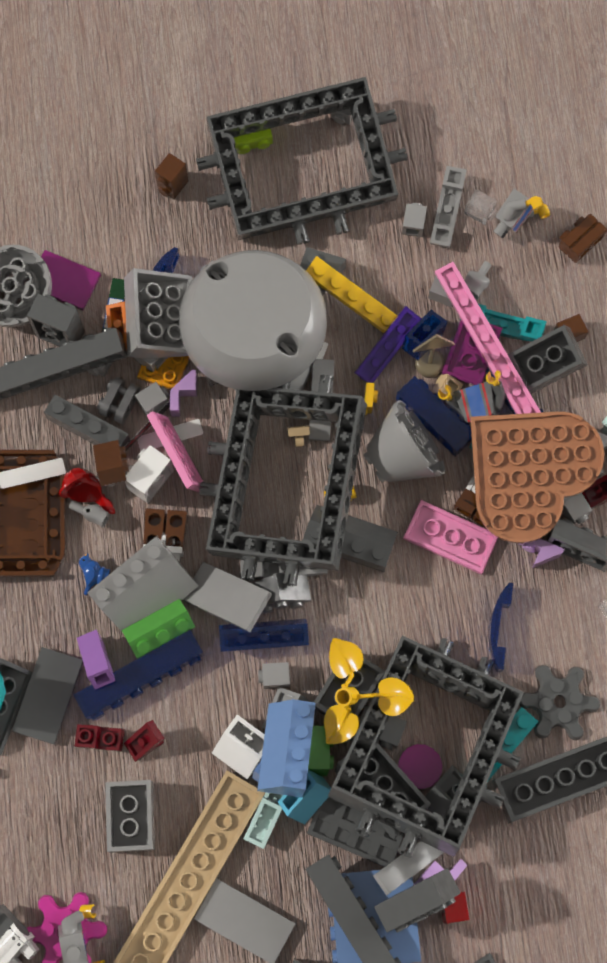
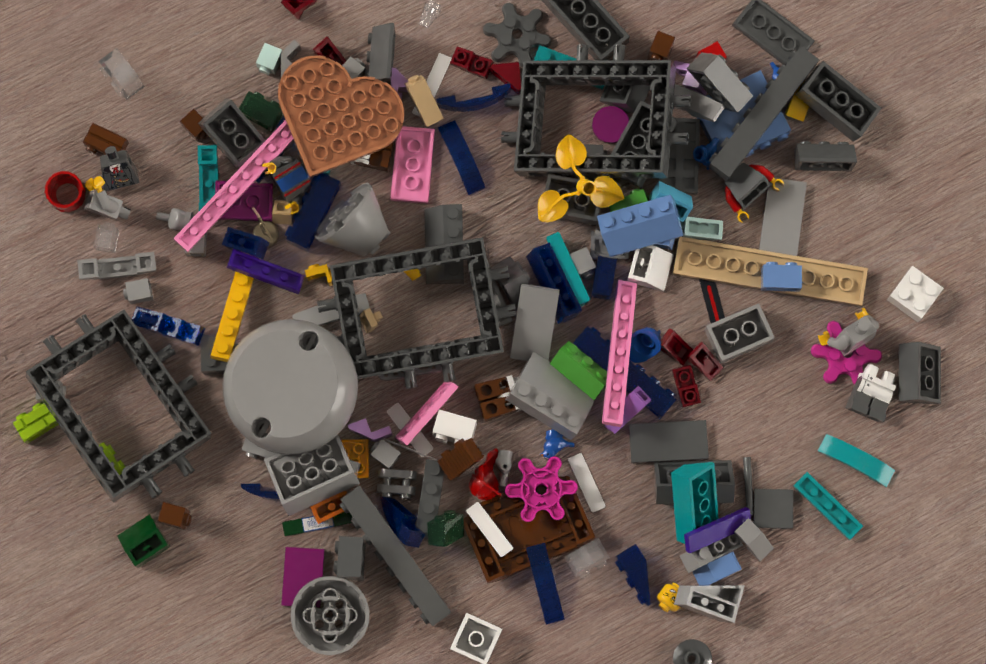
camera: 110 degrees left, 5 degrees up
(41, 593) = (586, 482): none -> white sticker
(47, 426) = (445, 528): none -> clear green brick
(53, 524) = (541, 476): none -> dark pink plate
(73, 386) = (402, 522): none -> clear blue slope
(115, 766) = (705, 361): none -> dark red slope
(157, 672) = (619, 353): none -> bright pink plate
(158, 140) = (143, 541): none -> dark green slope
(160, 706) = (645, 344): none -> blue piece
(172, 888) = (781, 277): none -> medium blue brick
(179, 803) = (712, 300): none -> black sticker
(249, 691) = (604, 278): none -> clear blue brick
(273, 655) = (568, 267): none -> teal slope
(292, 891) = (747, 185): none -> dark grey torso
(315, 75) = (35, 422): none -> lime brick
(347, 855) = (703, 153): none -> blue animal
(367, 233) = (167, 326): none -> clear blue slope
(441, 590) = (462, 157): none -> clear blue slope
(484, 853) = (661, 46): none -> reddish brown brick
(515, 569) = (423, 100): none -> tan brick
(516, 674) = (508, 74): none -> dark red slope
(532, 589) = (436, 75): none -> white sticker
(543, 640) = (471, 63): none -> dark red slope
(548, 170) = (59, 179): none -> red piece
(548, 237) = (118, 169): none -> dark grey torso
(565, 397) = (261, 111): none -> clear green brick

